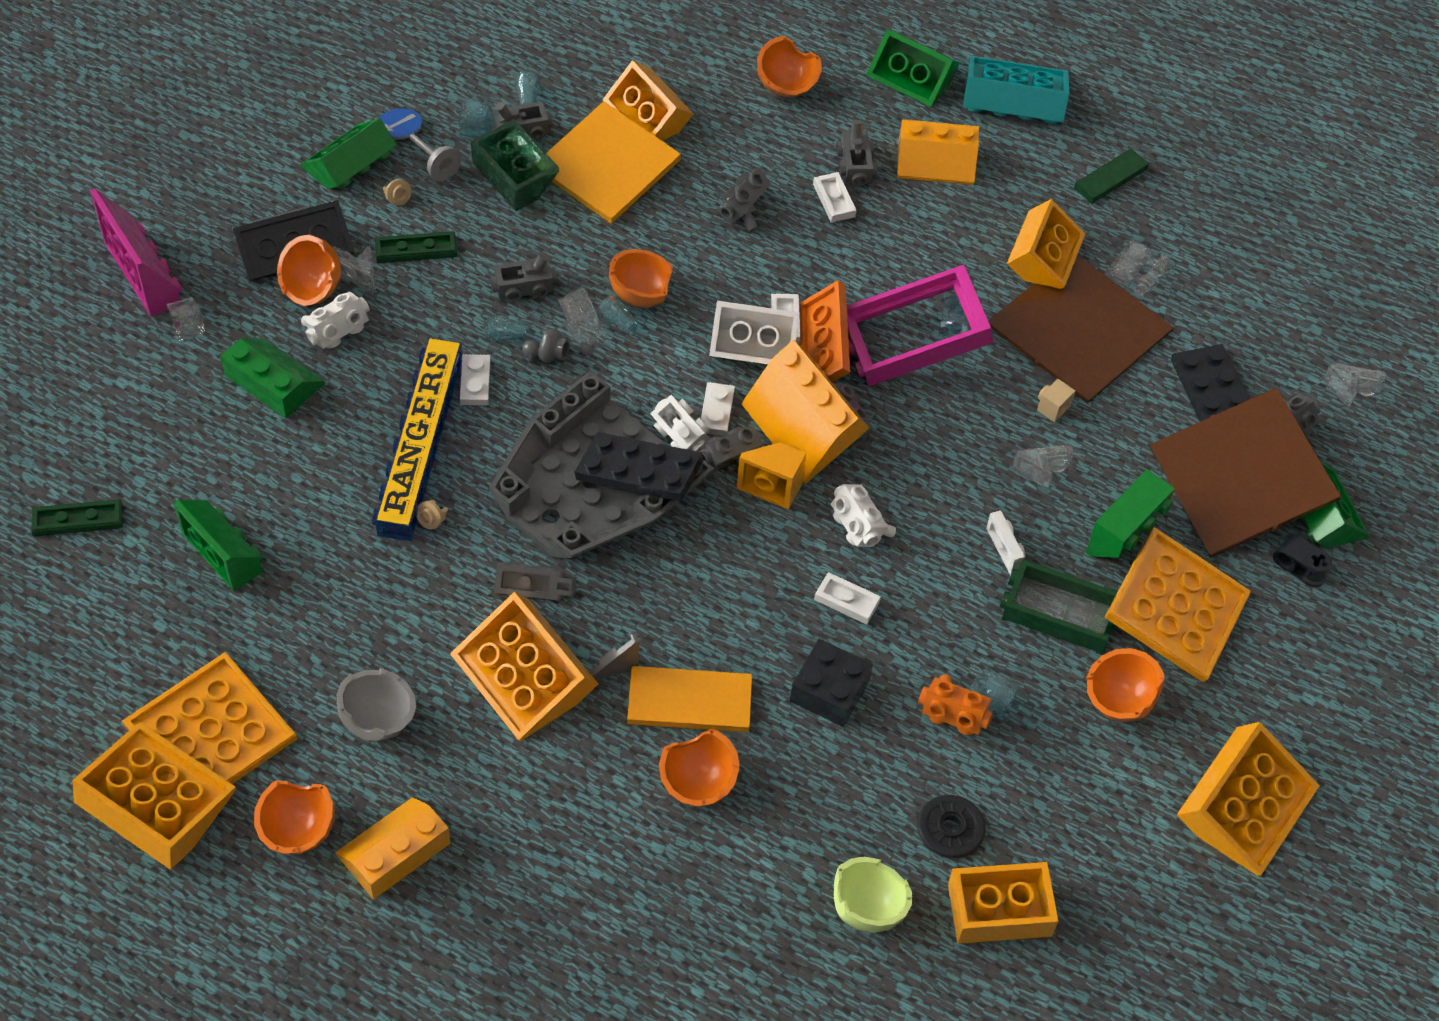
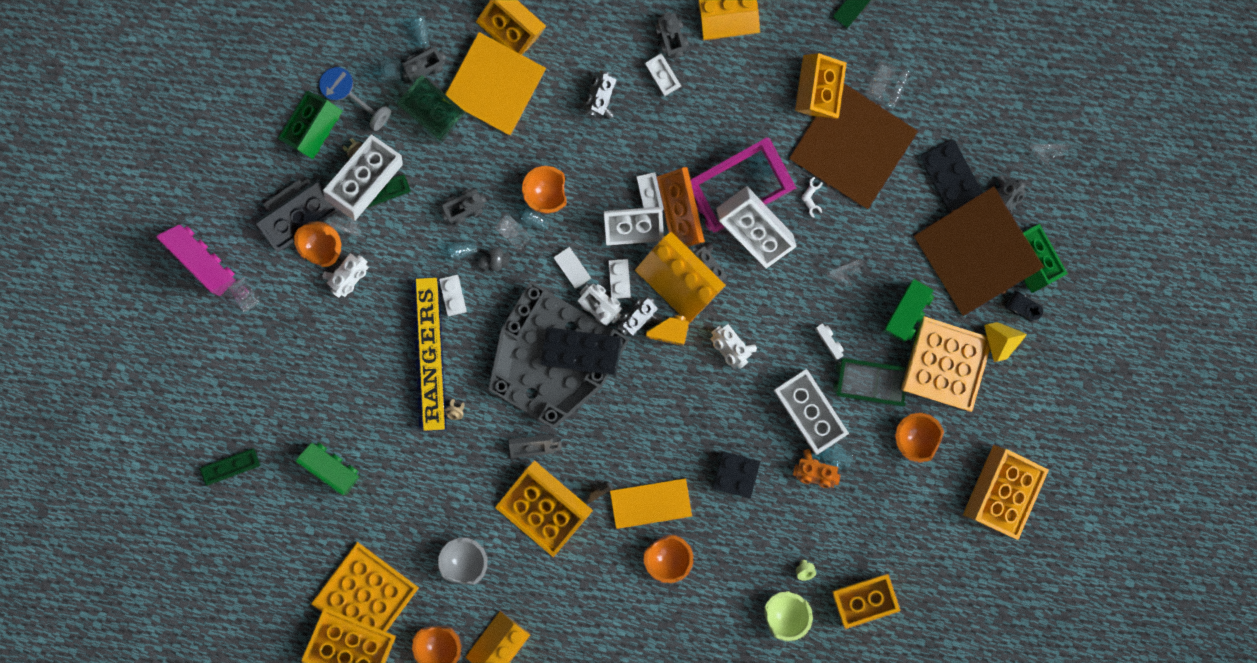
camera: 10 degrees left, 30 degrees up
(269, 374) = (318, 326): green slope -> none
(397, 210) = (363, 177): none -> white brick
(652, 380) = (572, 268): none -> white tile
(847, 598) = (734, 408): white plate -> none
(912, 842) = (805, 570): none -> yellowish green tile
(928, 365) = (756, 227): none -> white brick
(948, 843) = (839, 549): black wheel -> none
(962, 621) = (811, 412): none -> white brick
(1004, 371) = (806, 197): none -> white arm
(1055, 400) = (845, 217): tan plate -> none
(1267, 595) = (1003, 340): none -> yellow slope

